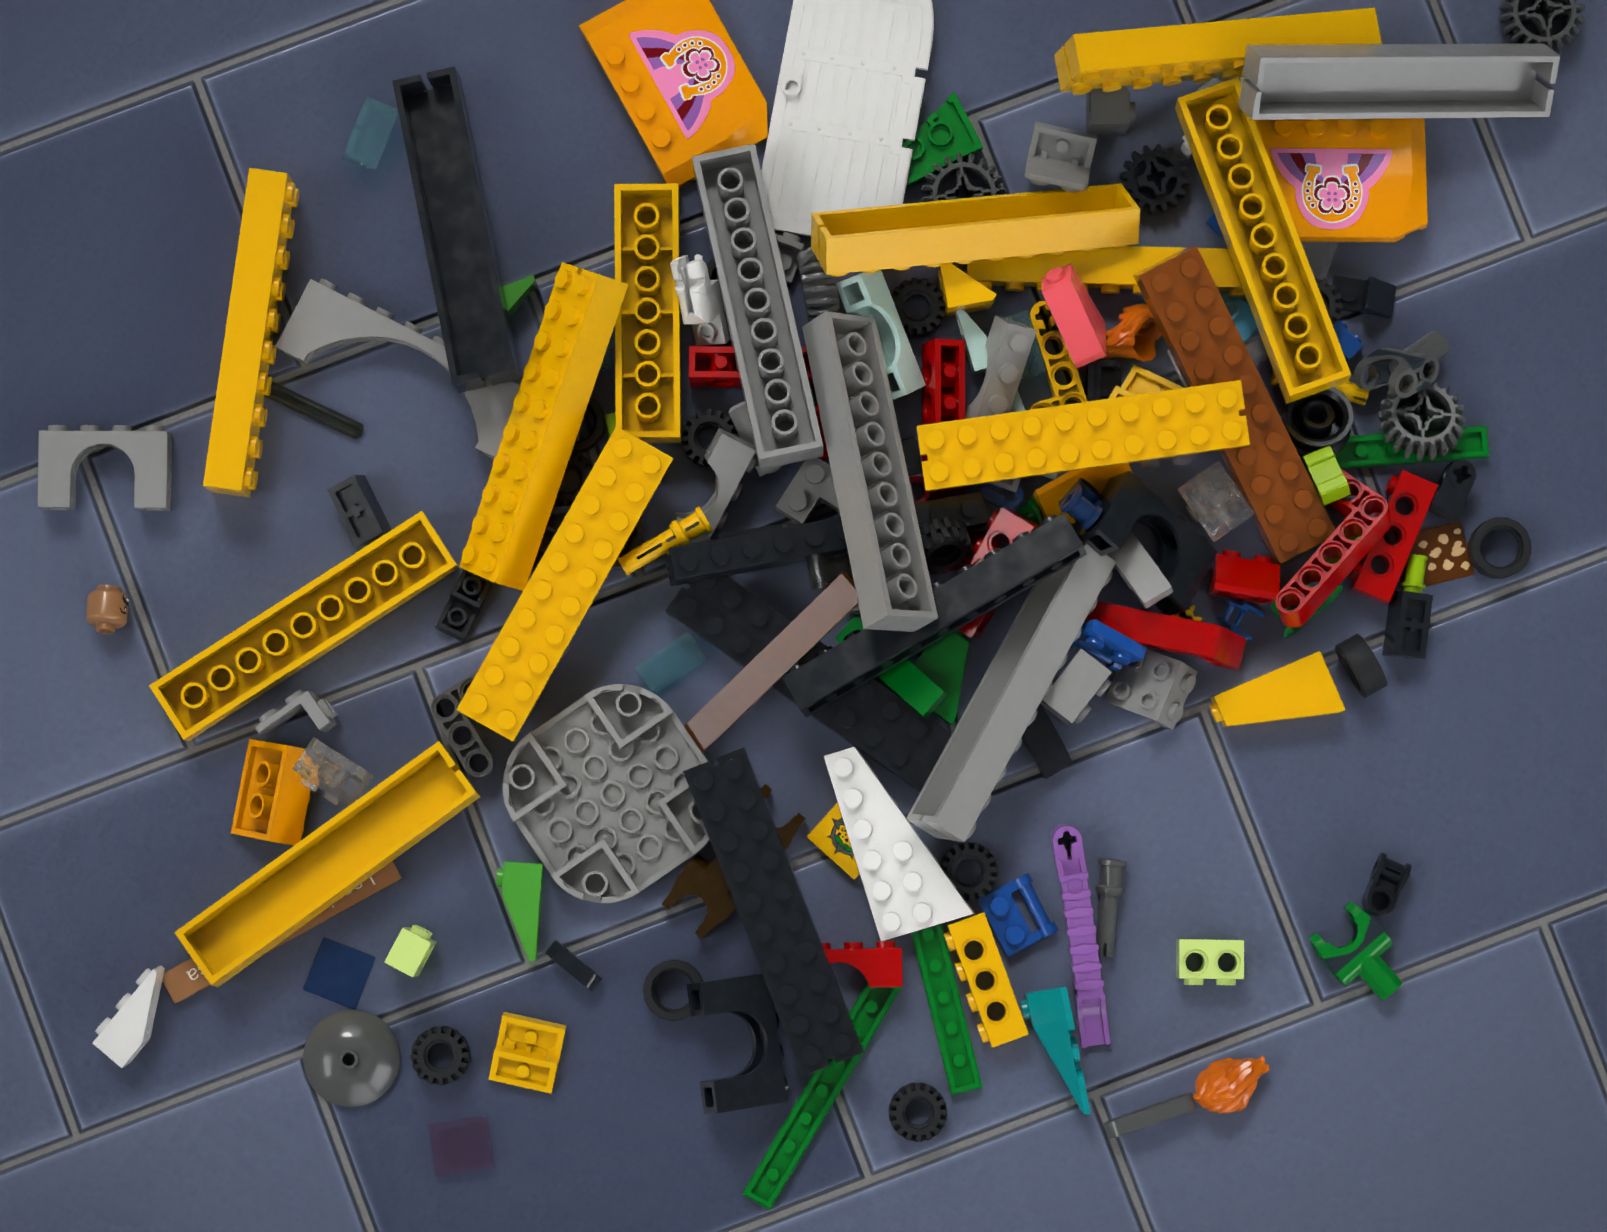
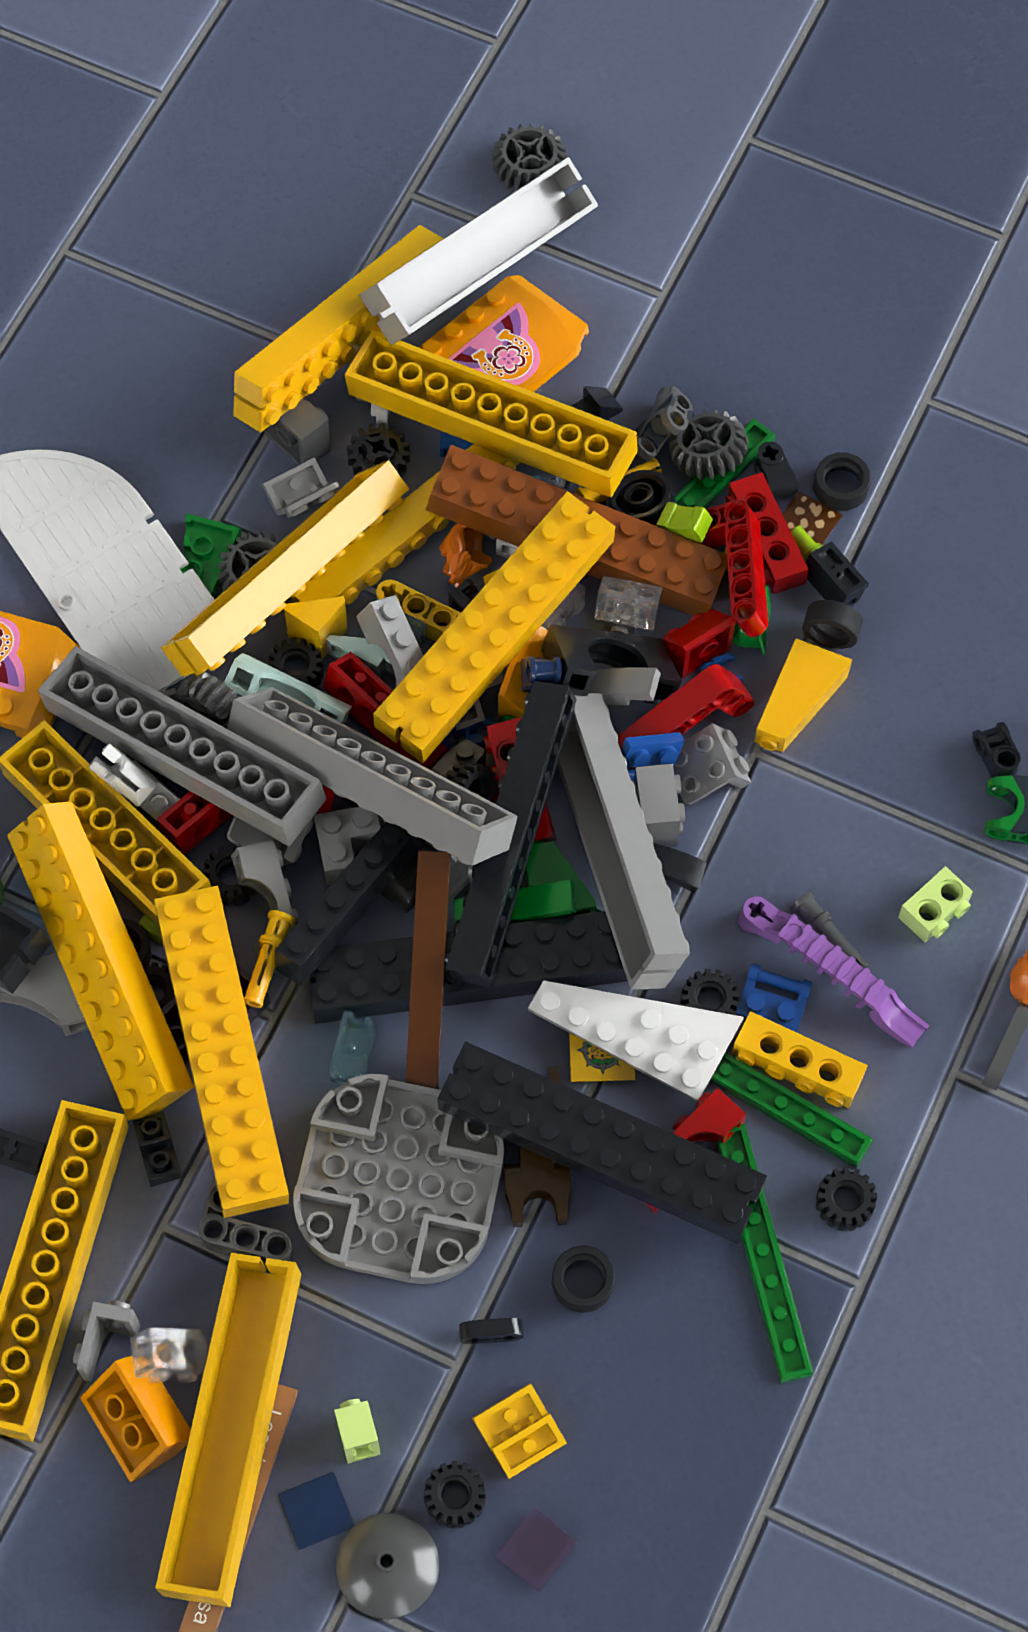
camera: 40 degrees left, 20 degrees down
(523, 897) = (405, 1317): bright green slope -> none
(763, 1077) = (650, 1231): black arch -> none
(1053, 1024) = (874, 1041): teal wedge -> none
(1075, 315) = (410, 569): coral slope -> none

